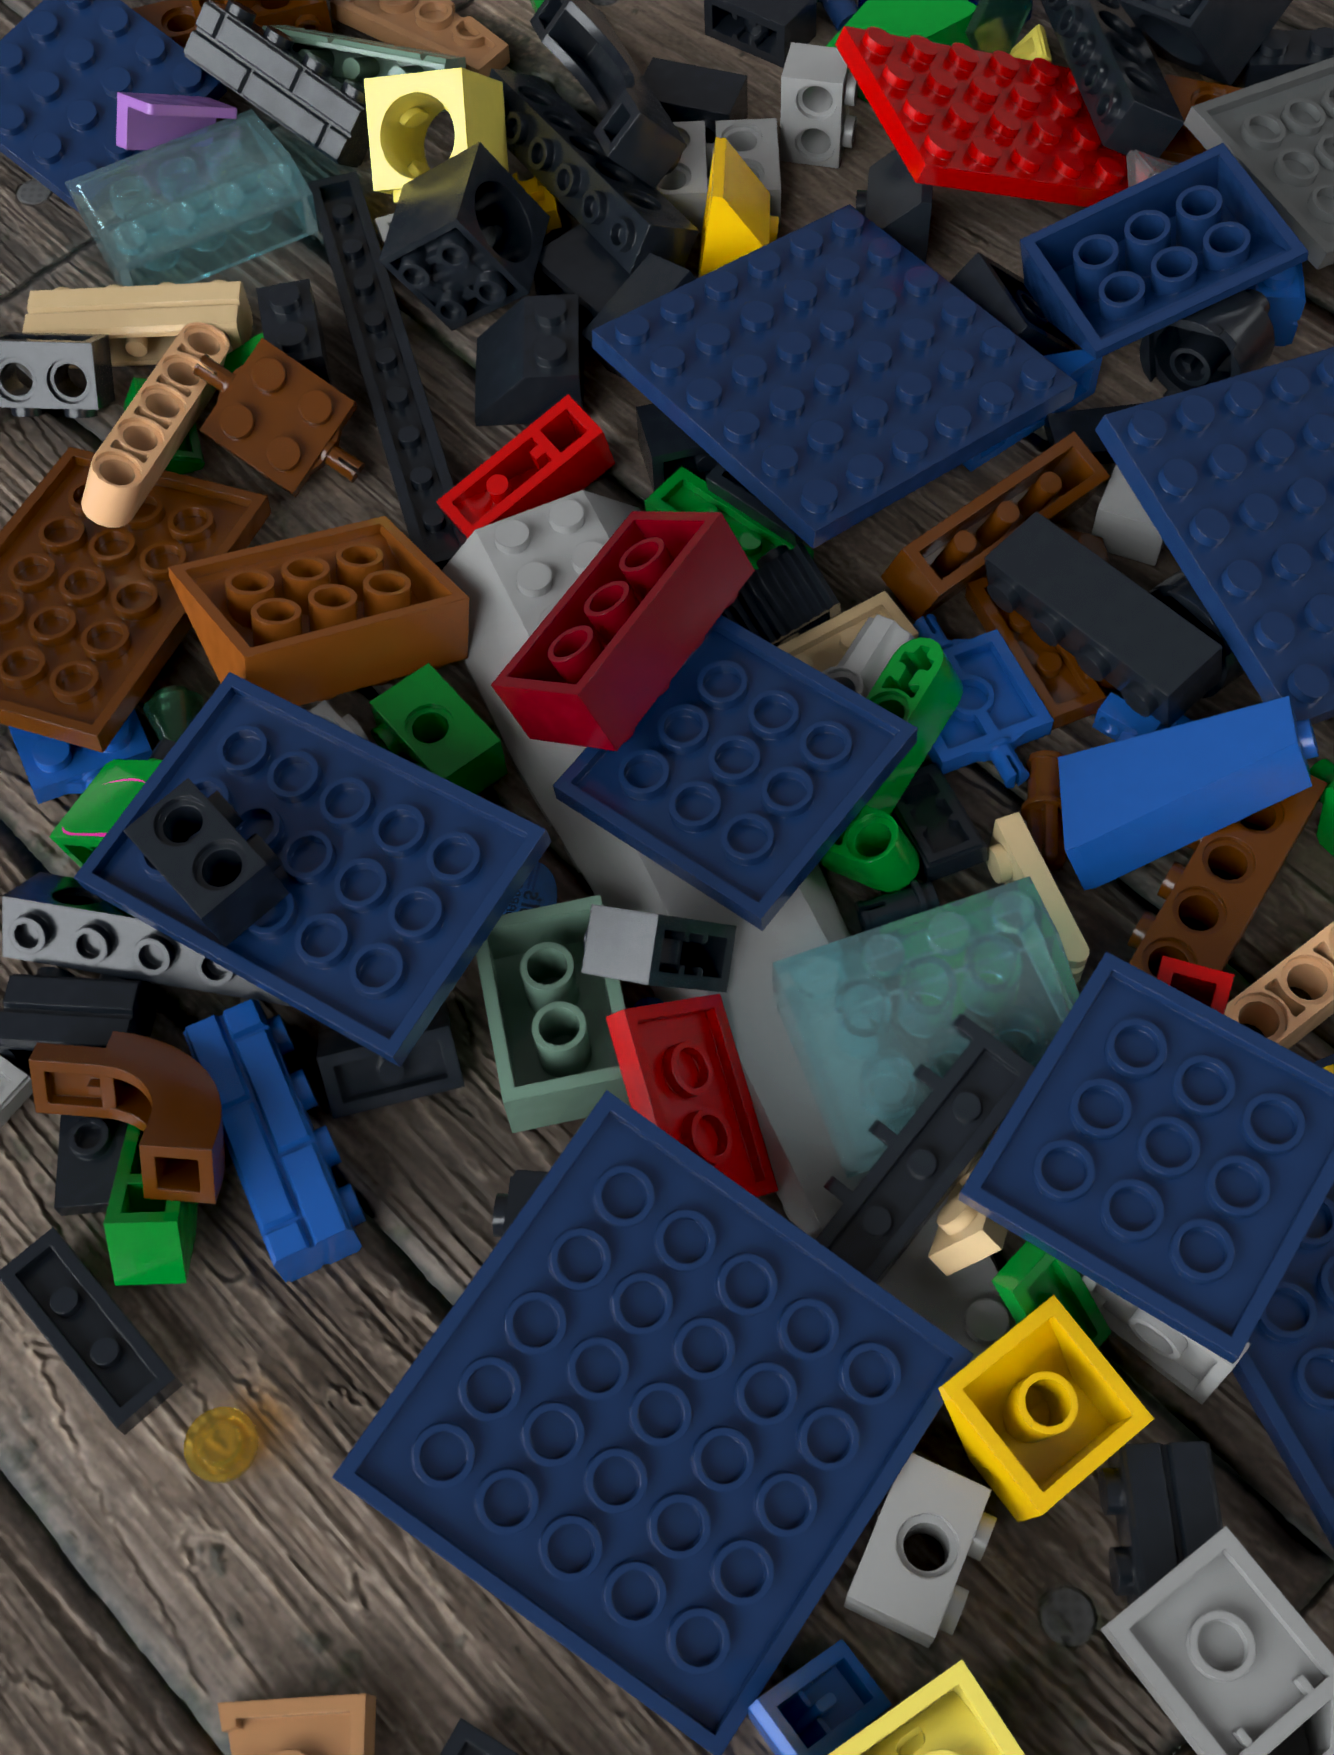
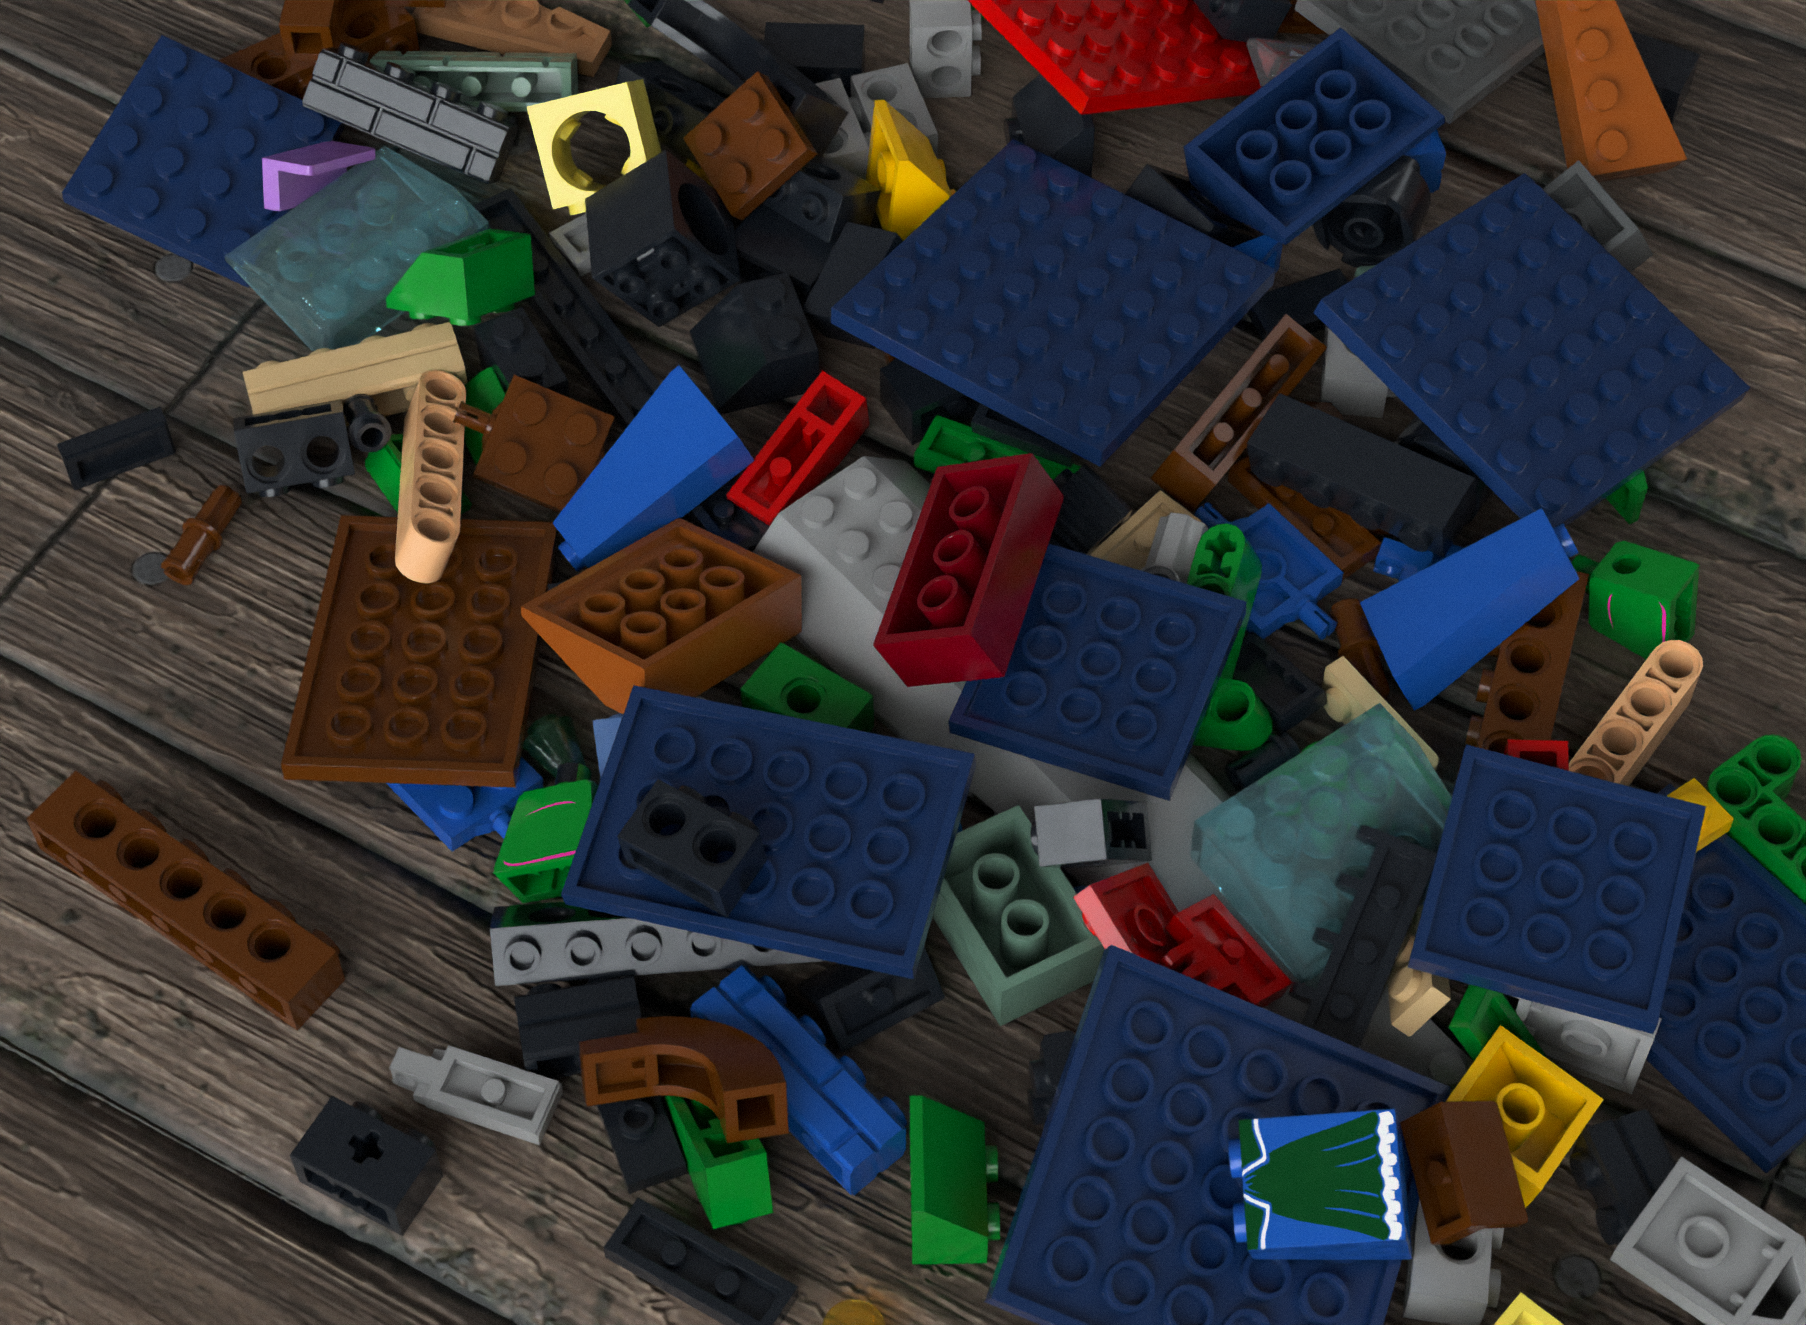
camera: 20 degrees left, 5 degrees down
(122, 364) = (367, 427): none -> black pin
(268, 240) = (467, 278): none -> green slope
(370, 1303) = (950, 1185): none -> green slope
(371, 463) = (653, 474): none -> blue slope
(576, 159) = (750, 145): none -> reddish brown plate
(761, 1127) = (1223, 954): none -> red hinge
(767, 1452) = (1322, 1187): none -> slope
(953, 1468) = (1463, 1170): none -> reddish brown panel

